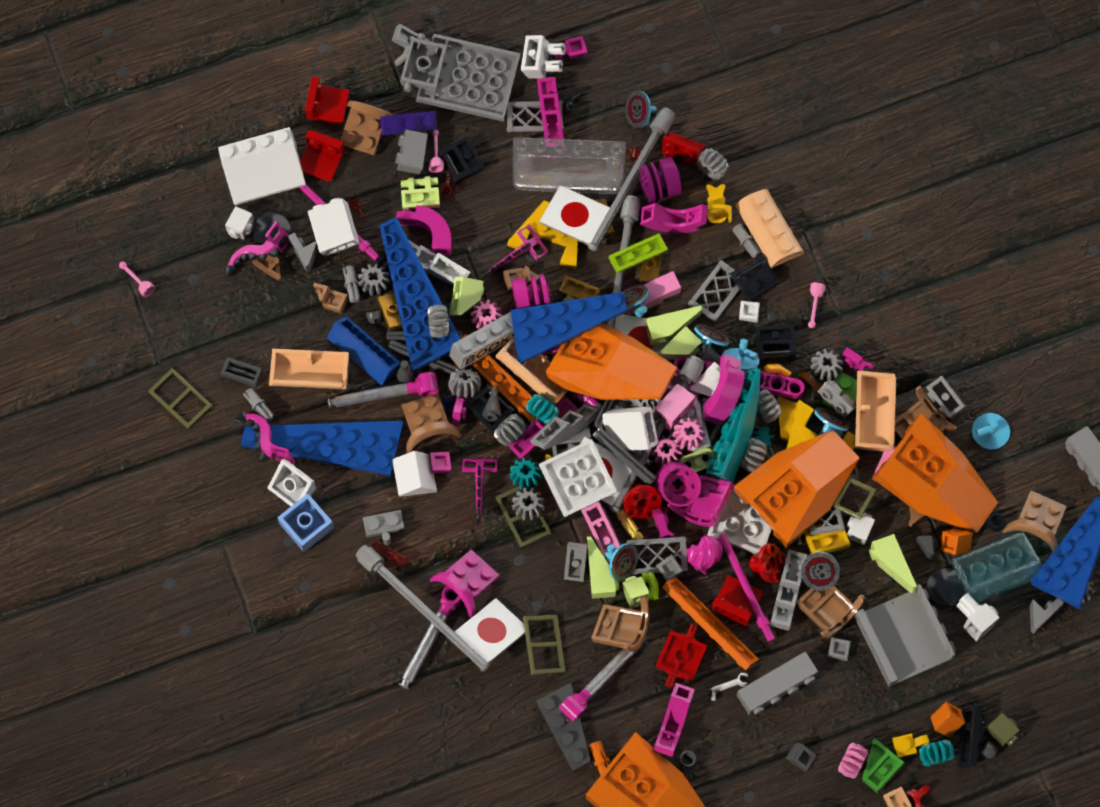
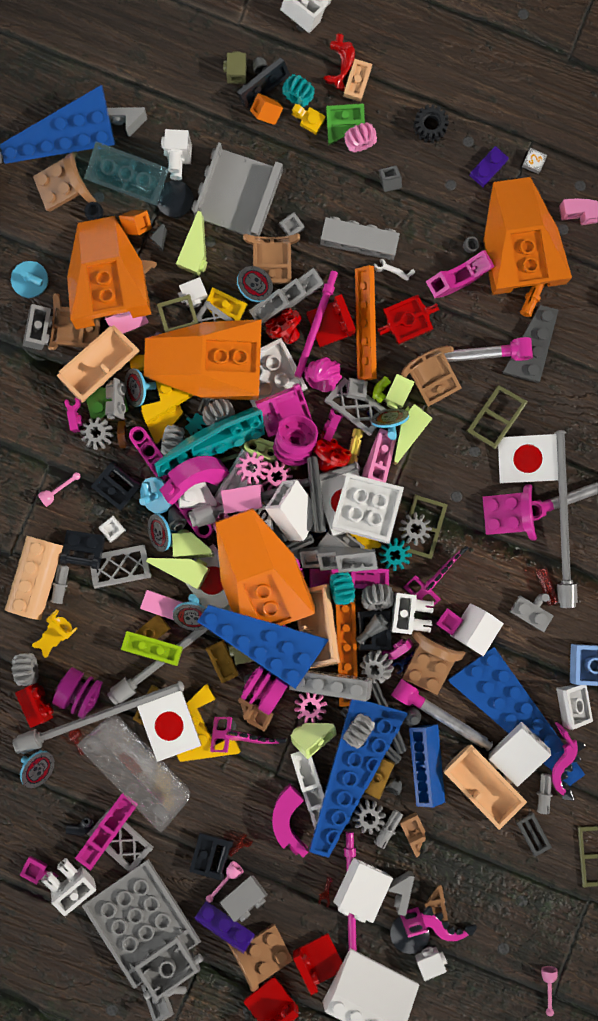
camera: 140 degrees left, 15 degrees up
(304, 413) = (519, 754): none -> white brick
(424, 197) = (271, 852): yellowish green plate -> none
(482, 438) = (403, 614): none -> white brick
(575, 561) = (420, 454): light grey slope -> none
(673, 221) = (97, 651): dark pink arch -> none
(777, 369) = (137, 466): light orange arm -> none

